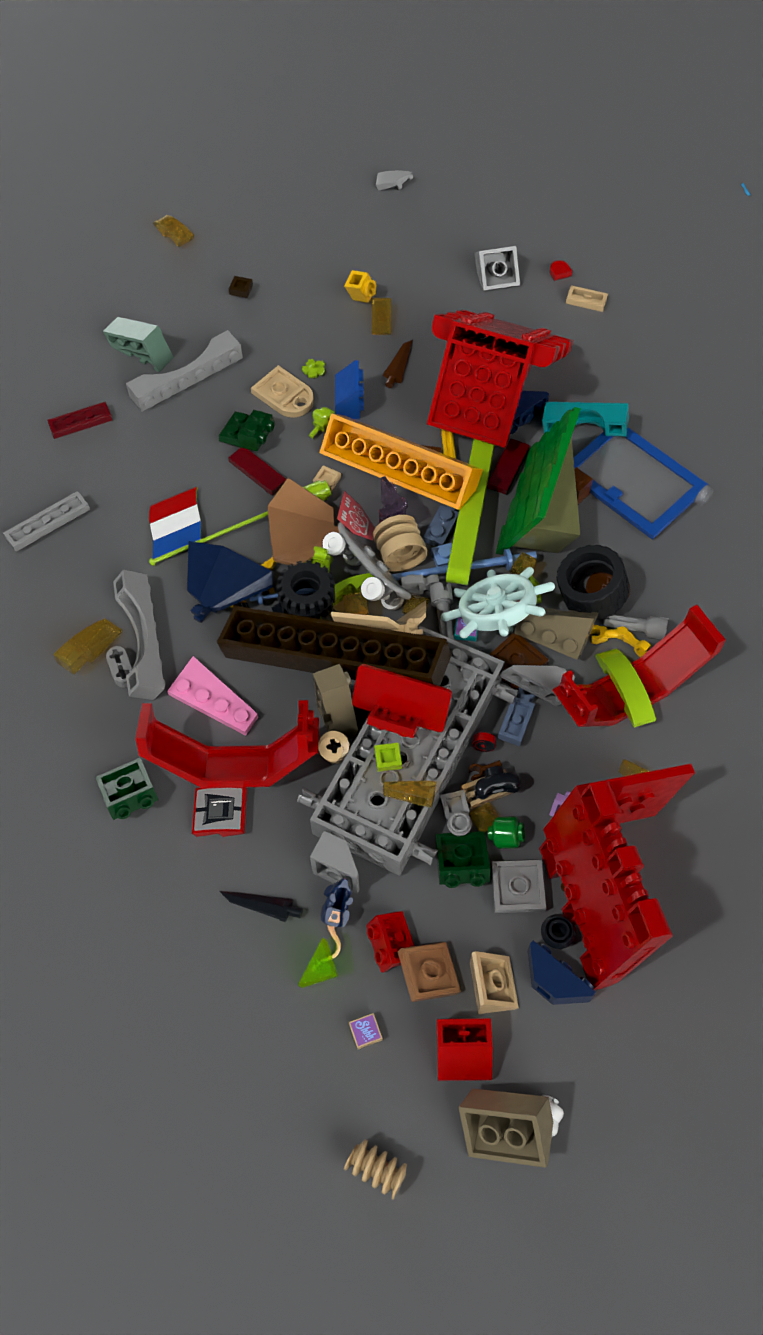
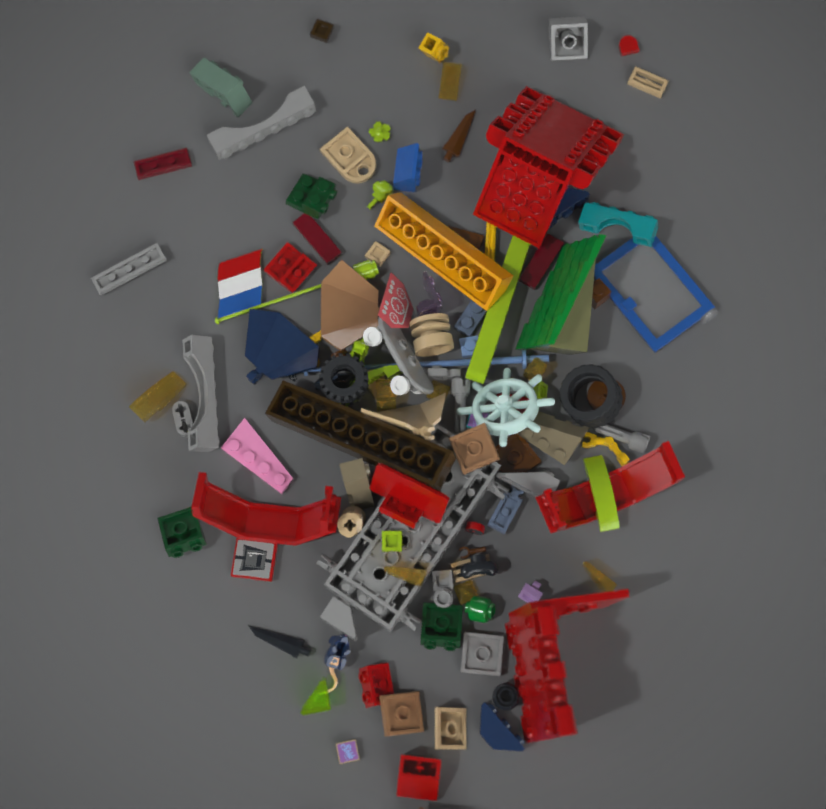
camera: 10 degrees right, 15 degrees up
(229, 501) = (289, 267): none -> red slope
(471, 644) = (474, 448): none -> medium nougat tile

